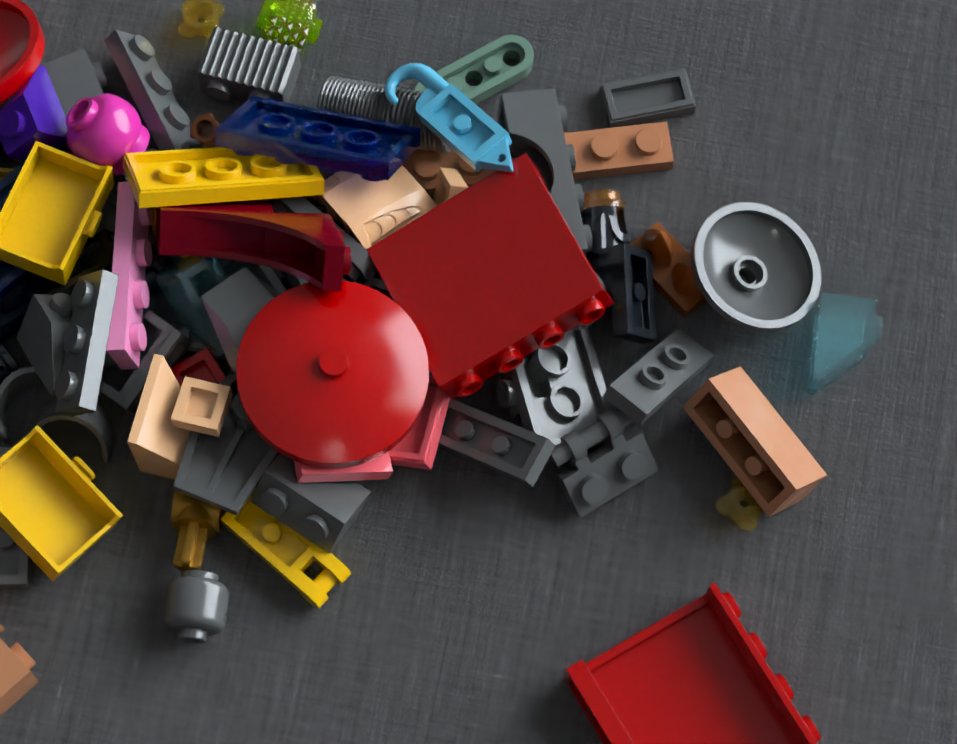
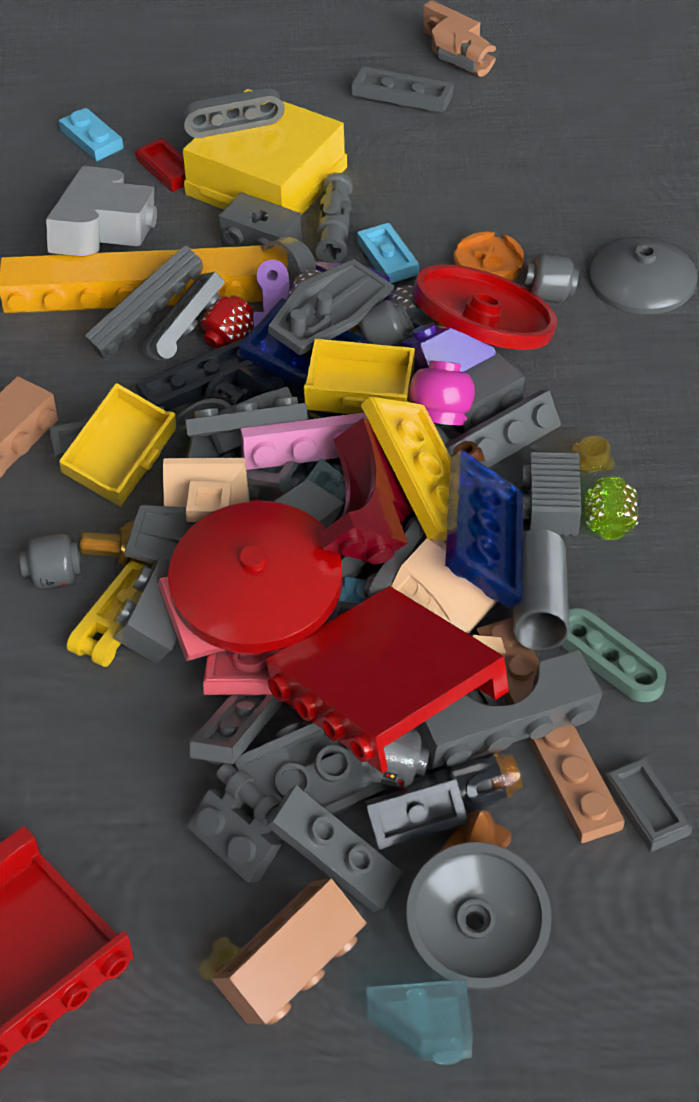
camera: 80 degrees right, 20 degrees down
(455, 119) = (528, 608): medium azure plate -> none

